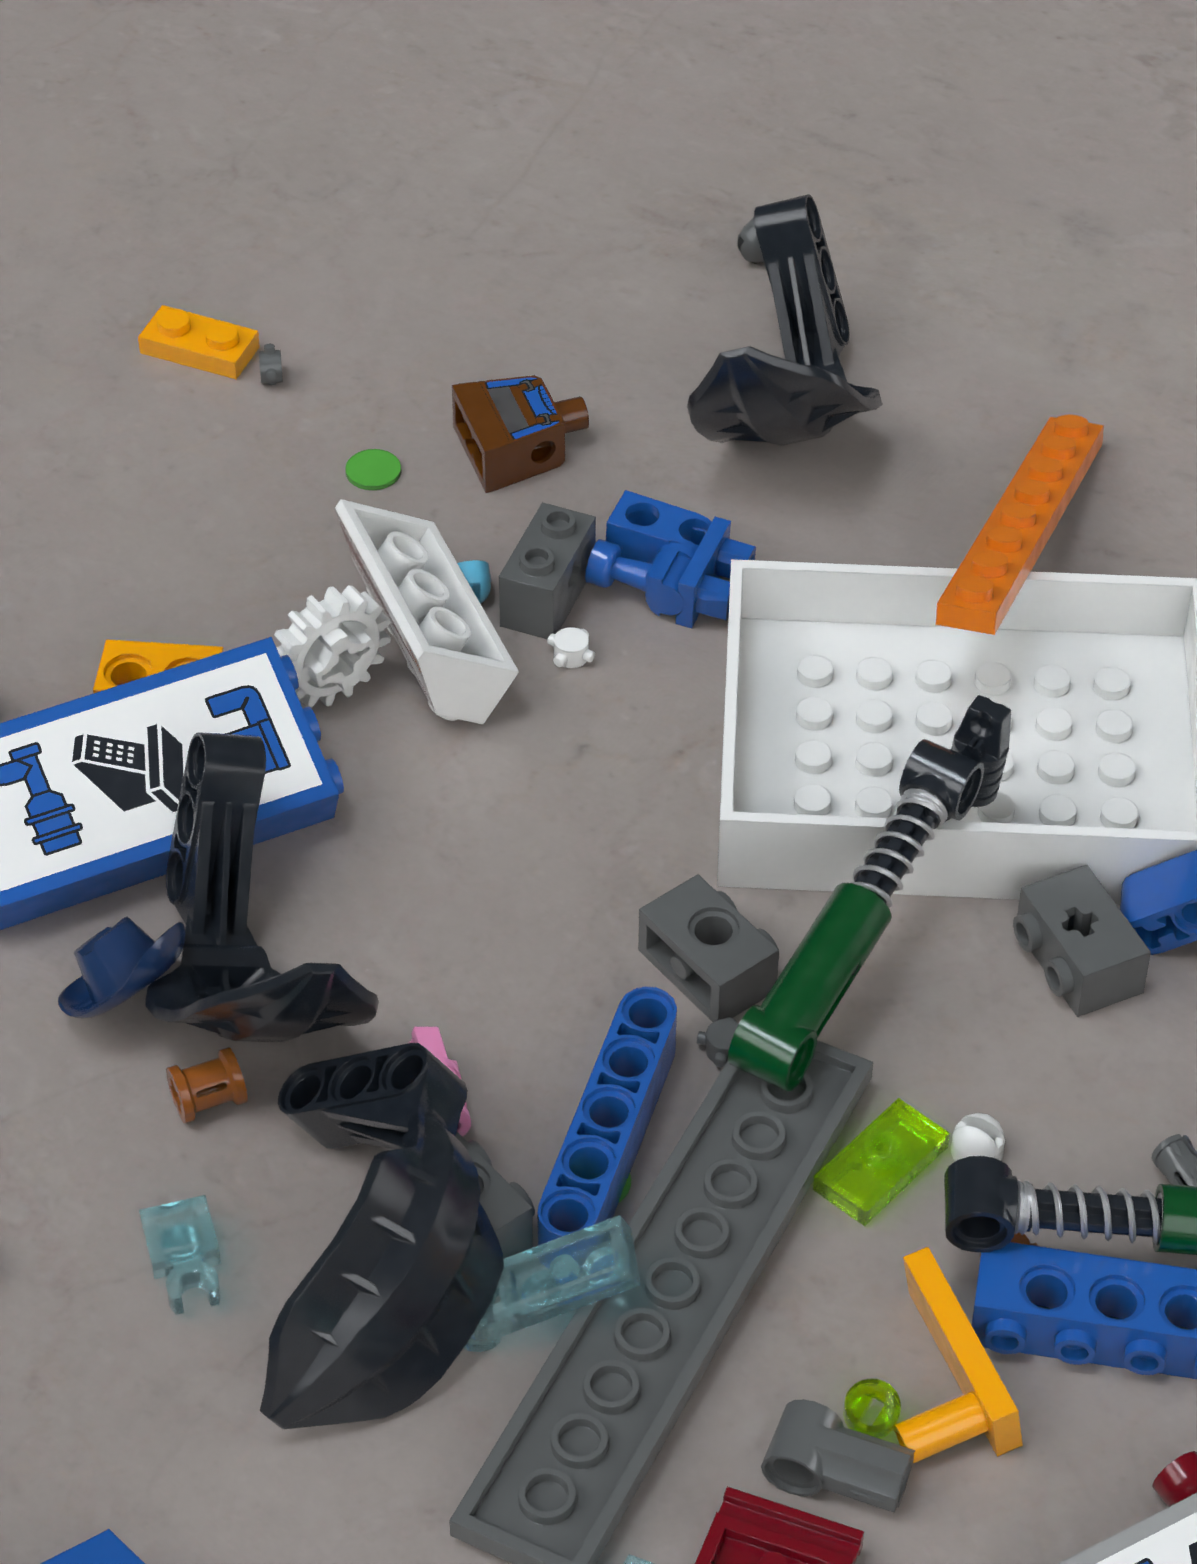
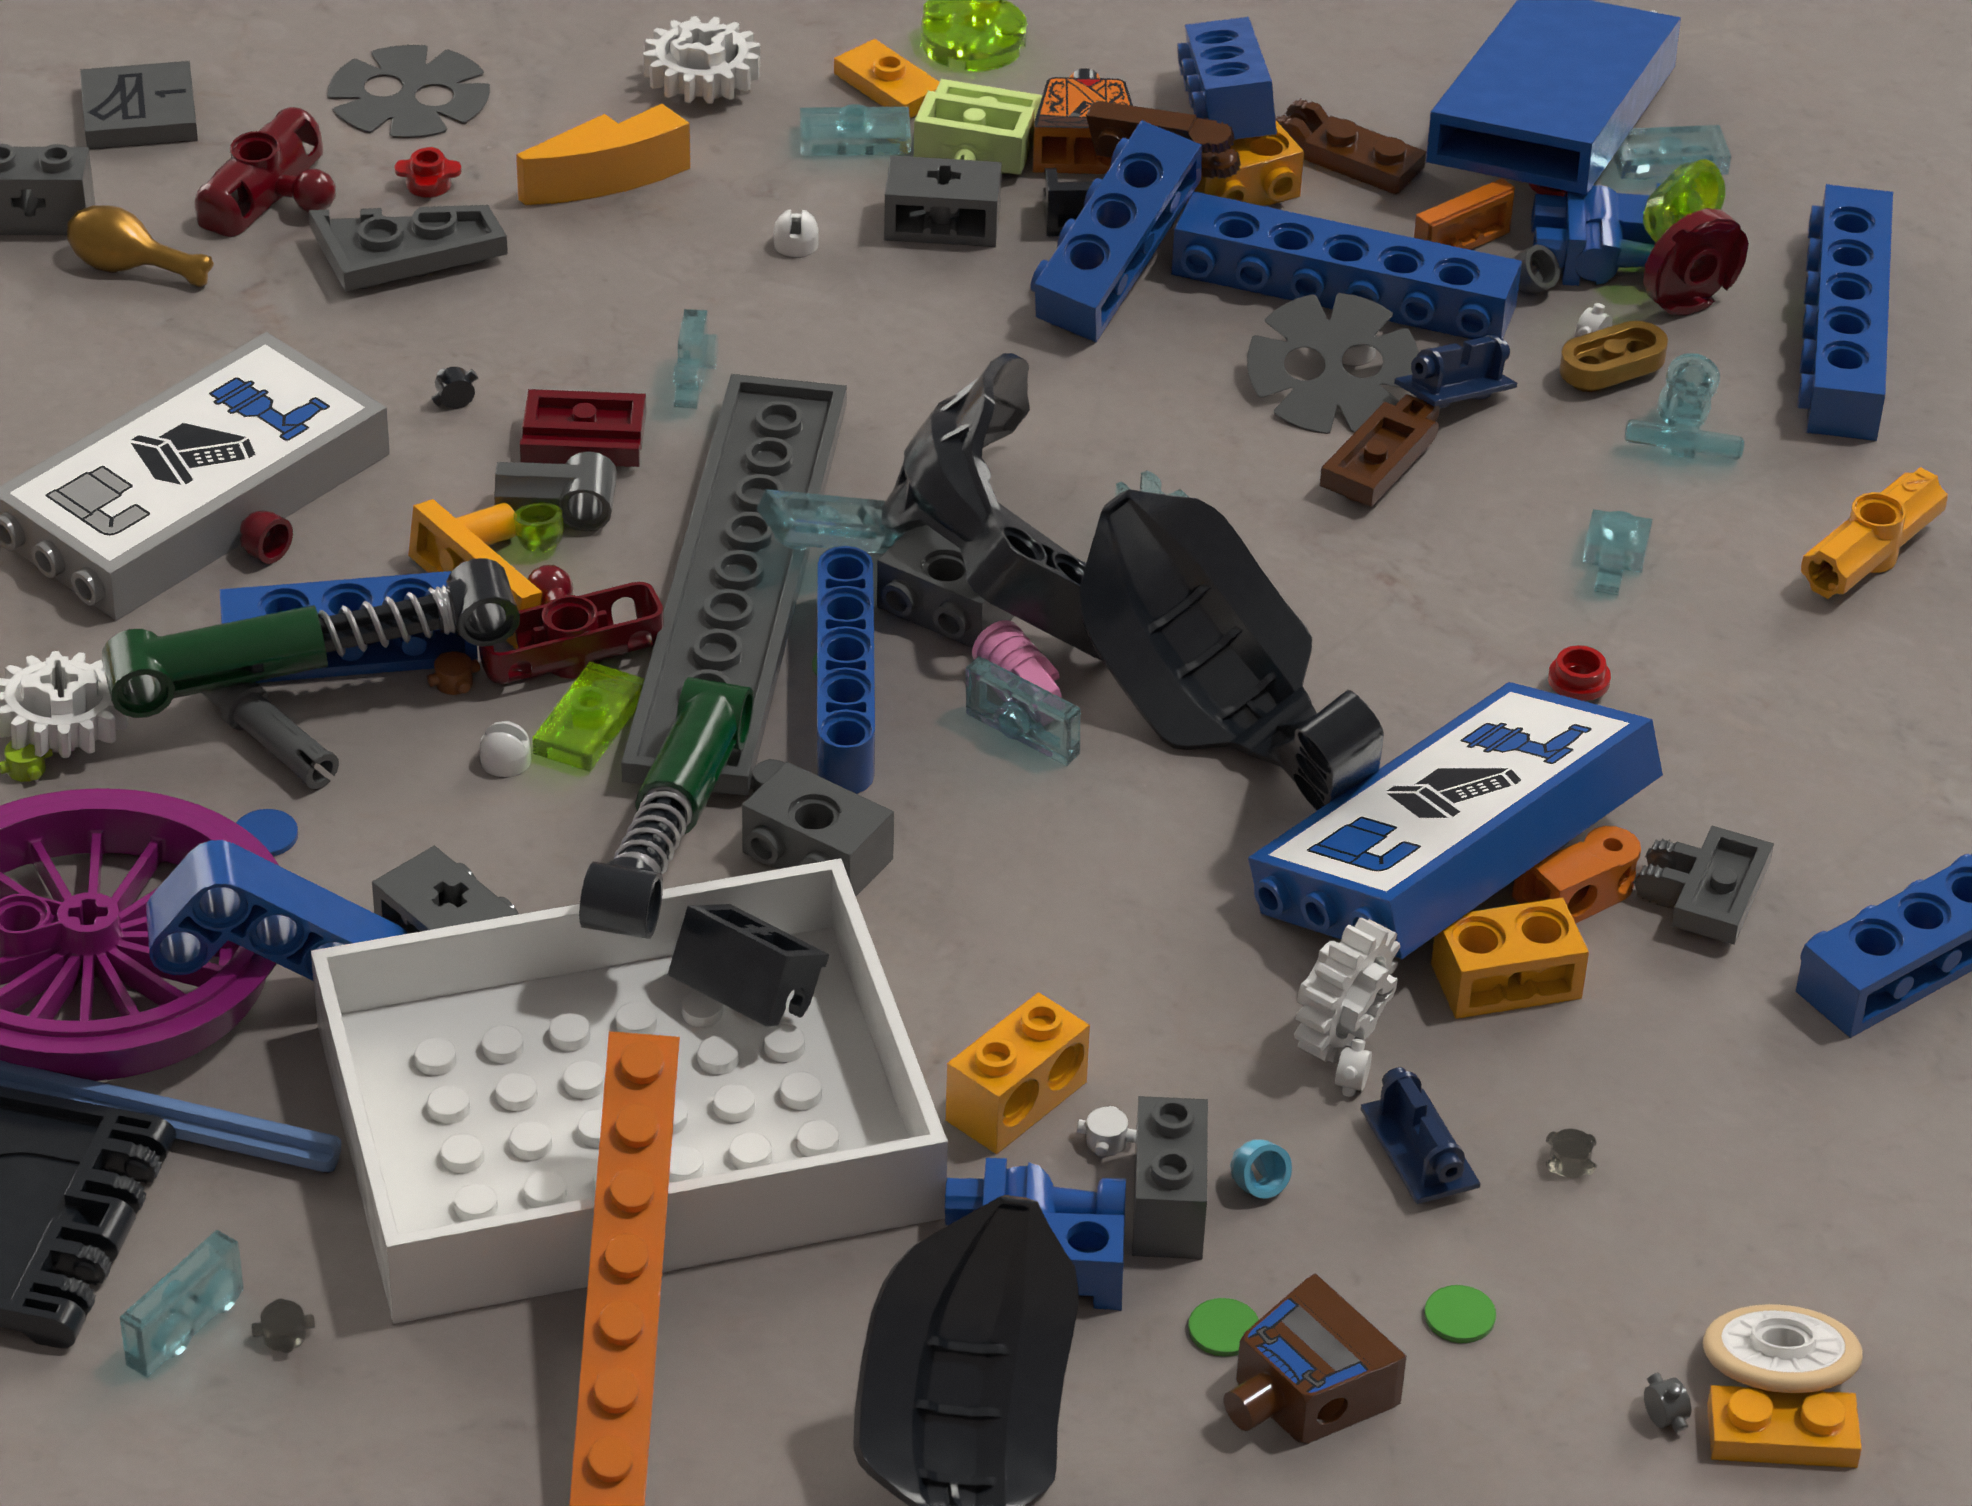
camera: 160 degrees right, 5 degrees down
(118, 966) = (1348, 655): dark blue hat -> none
(171, 402) = (1782, 1348): none -> wheel
(214, 548) = (1571, 1153): none -> clear smoke piece
(326, 560) = (1418, 1139): none -> dark blue hinge
(430, 610) = (1281, 1045): white slope -> none
(461, 1032) = (1022, 710): none -> clear light blue plate
(553, 492) = (1220, 1324): none -> bright green piece
(629, 679) = (1017, 1072): none -> light orange brick
(829, 765) = (745, 963): none -> black hinge
(870, 1240) = (573, 629): none -> dark red piece
(985, 738) = (591, 947): black hinge -> none

